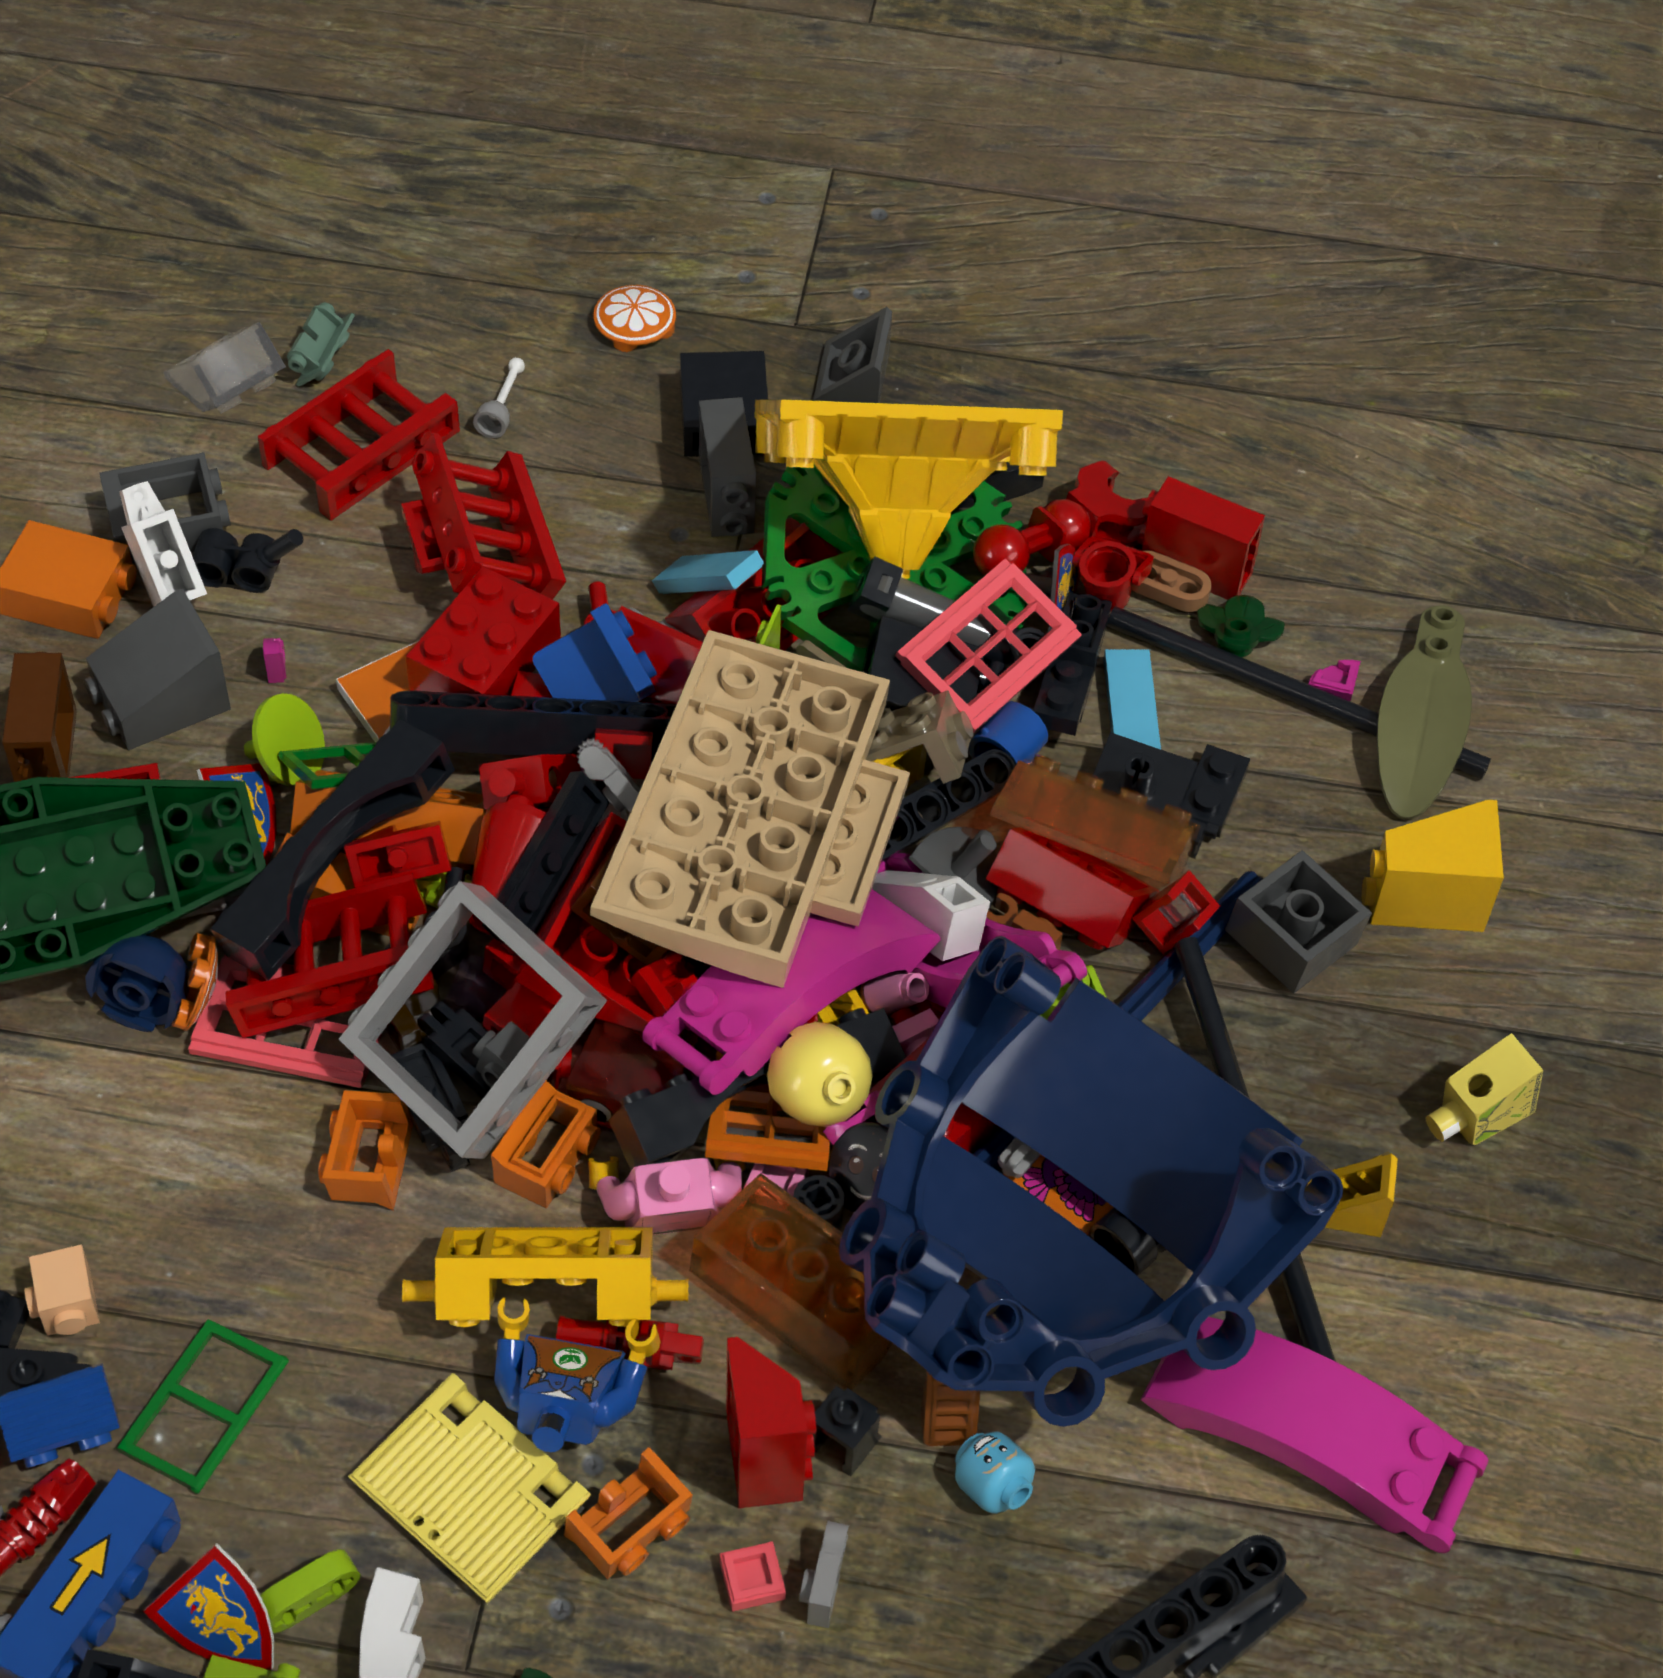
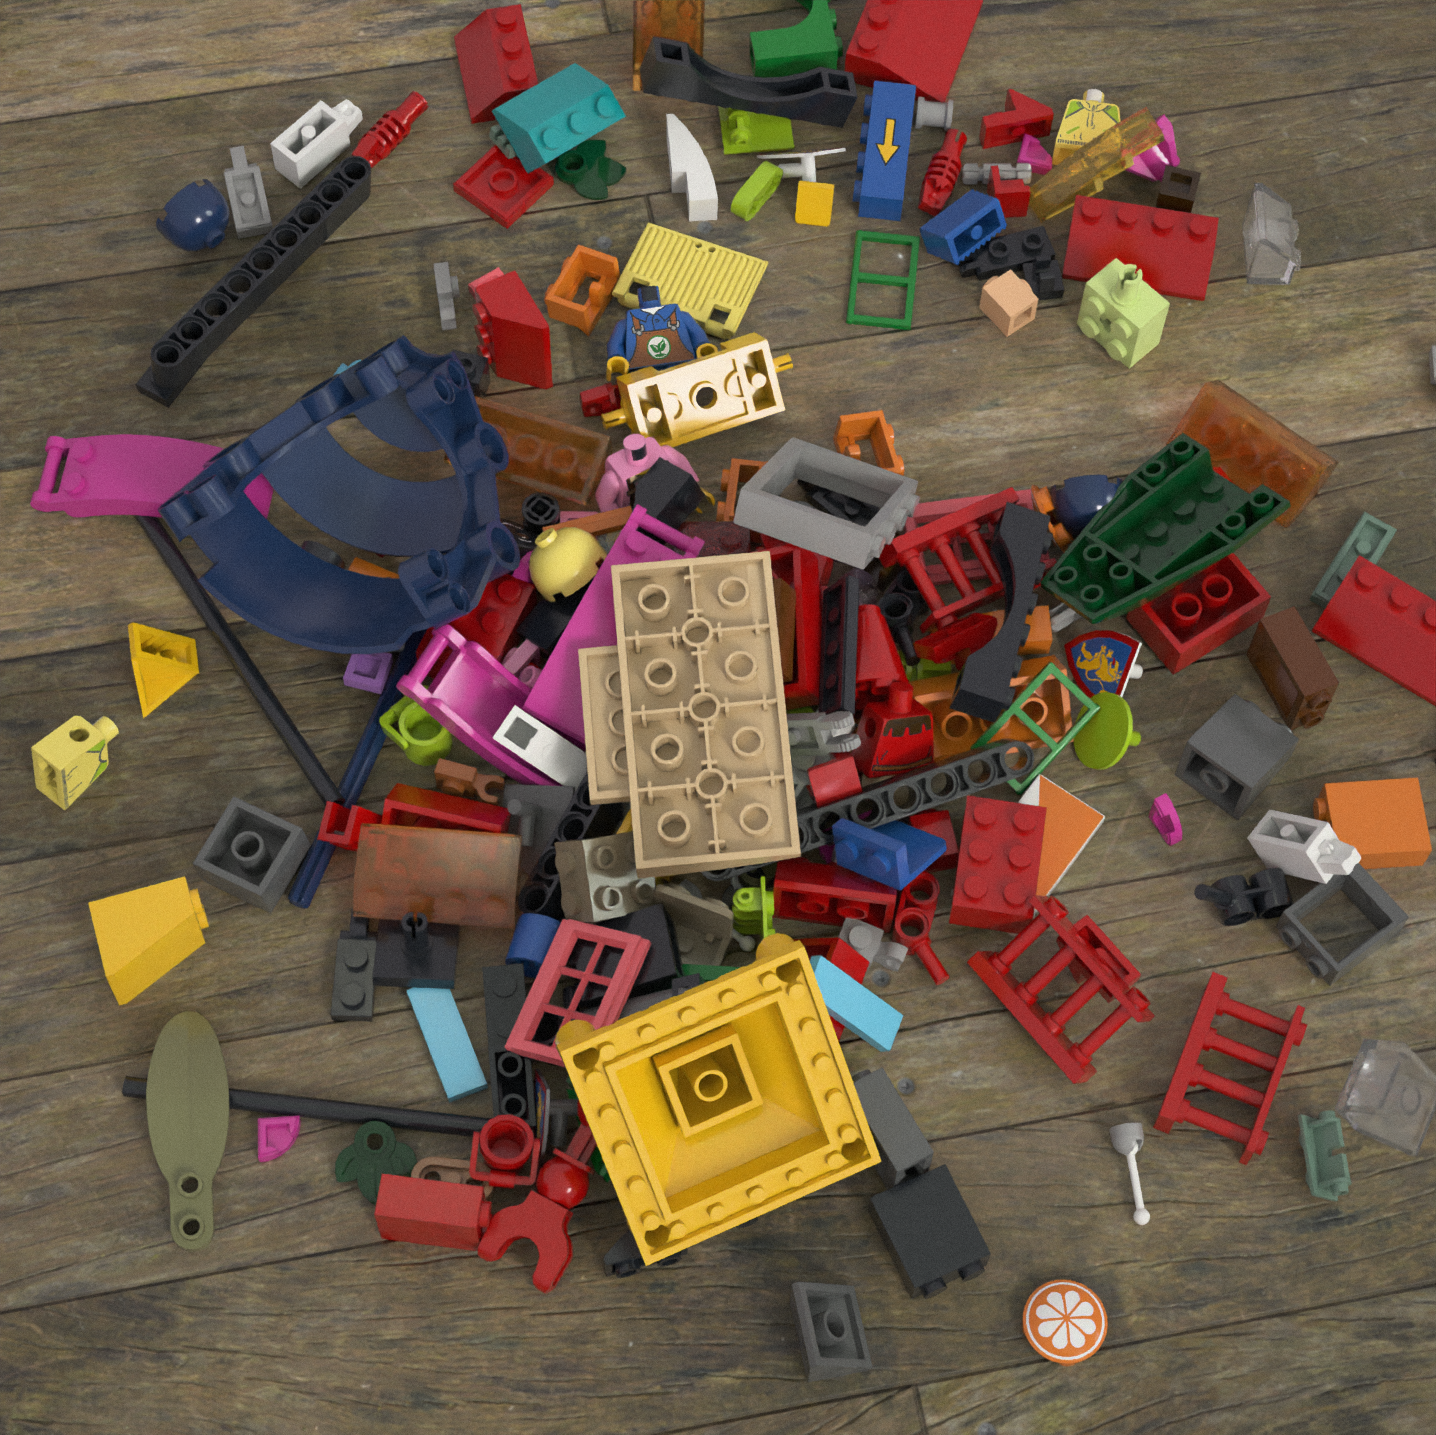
camera: 160 degrees right, 10 degrees up
(239, 1542) = (814, 203): none -> yellow slope

